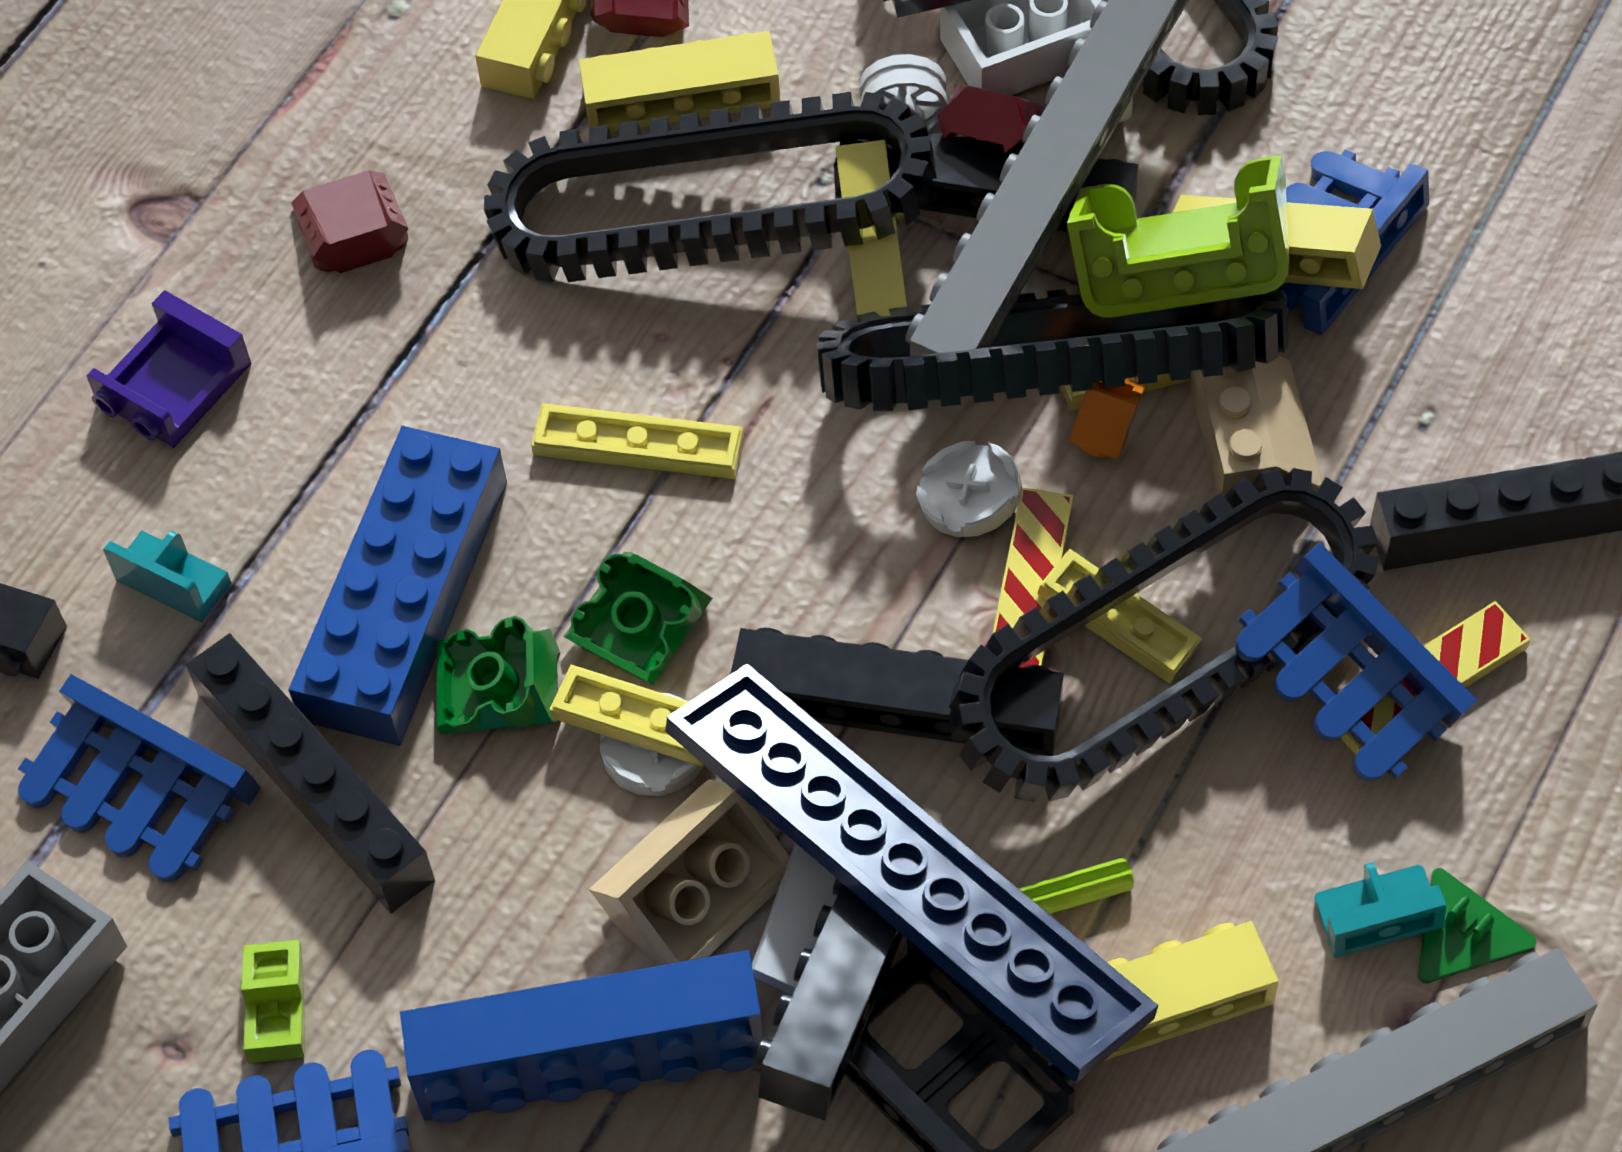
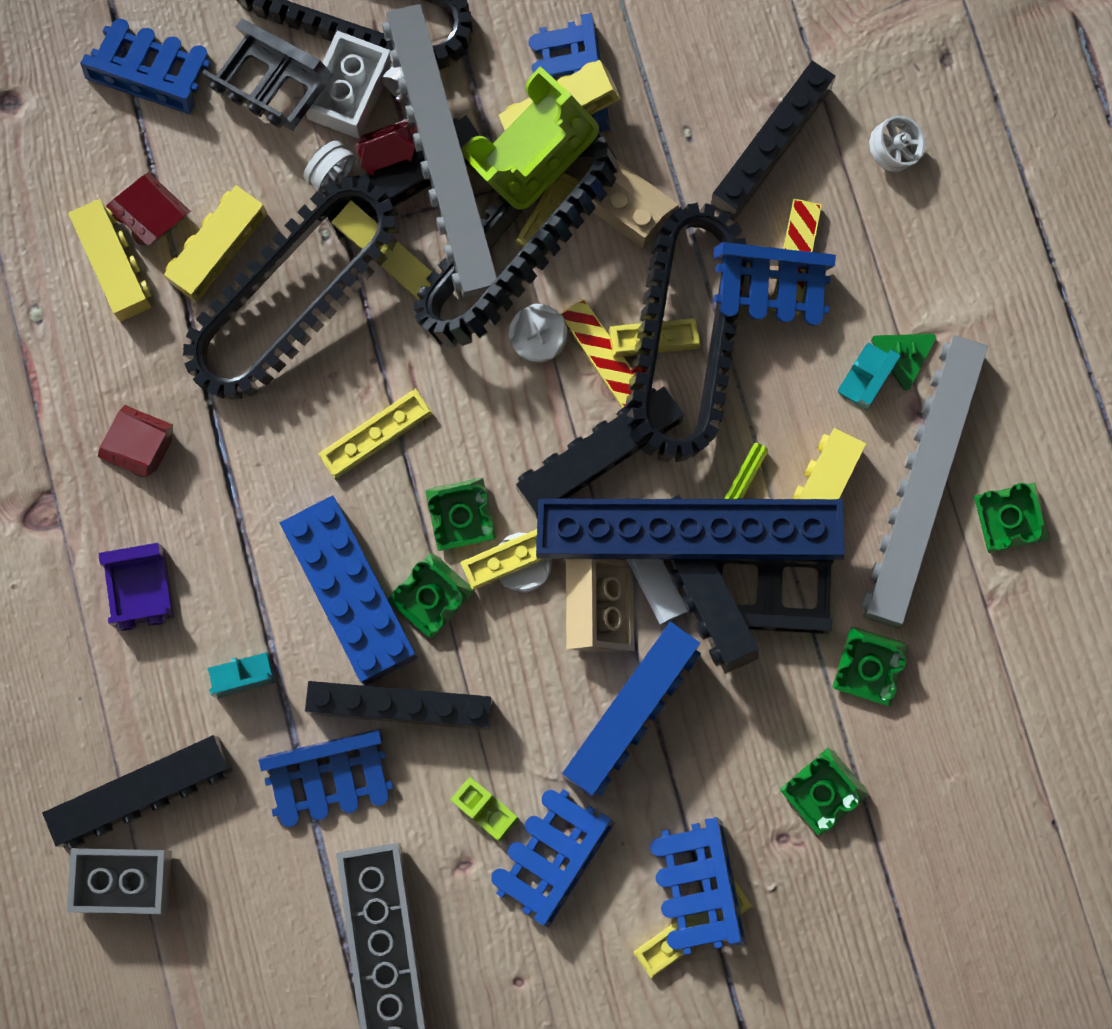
camera: 45 degrees left, 20 degrees up
(1106, 418) = (571, 255): orange brick -> none

